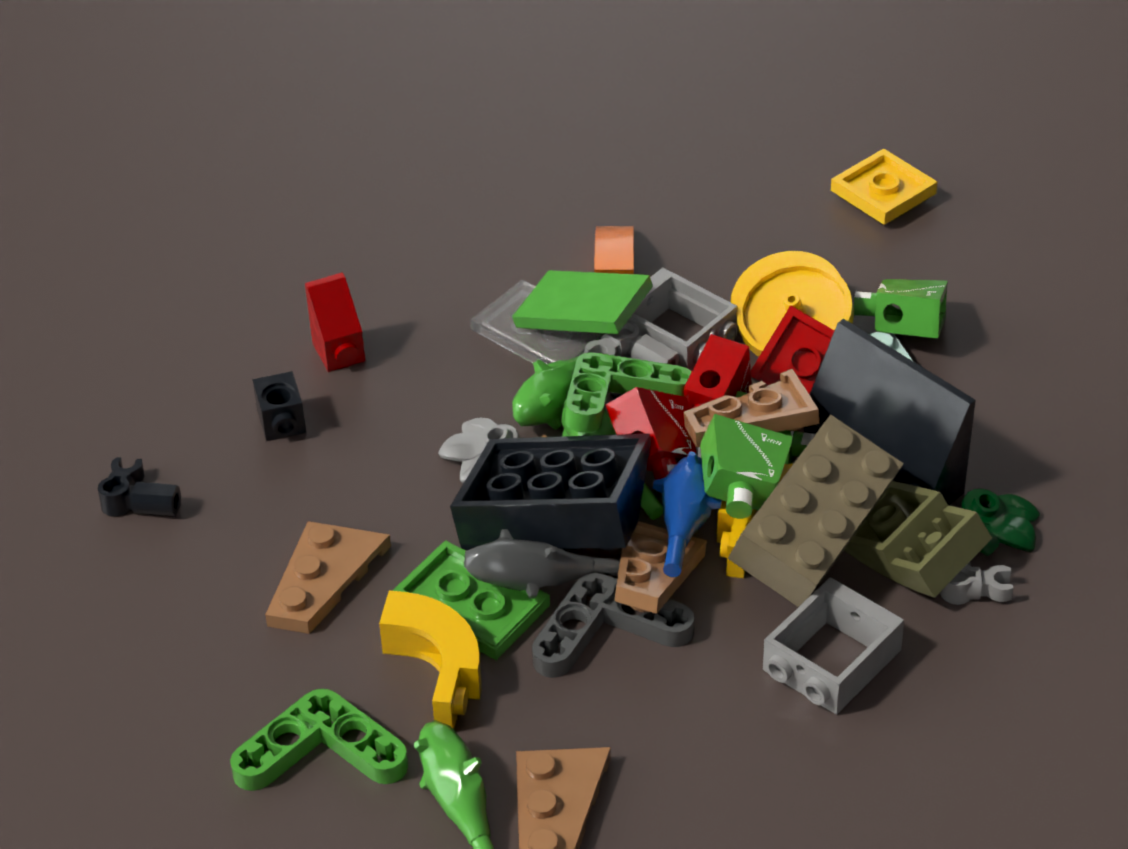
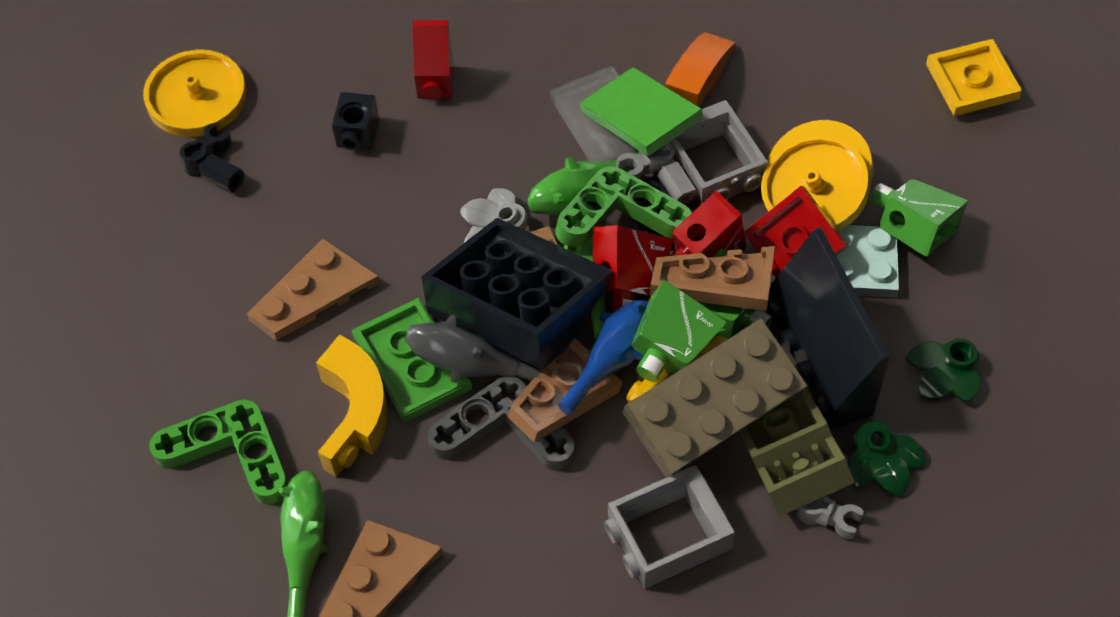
camera: 25 degrees right, 15 degrees up
(75, 438) = (194, 92): none -> yellow piece
(1011, 429) = (943, 373): none -> dark green plate

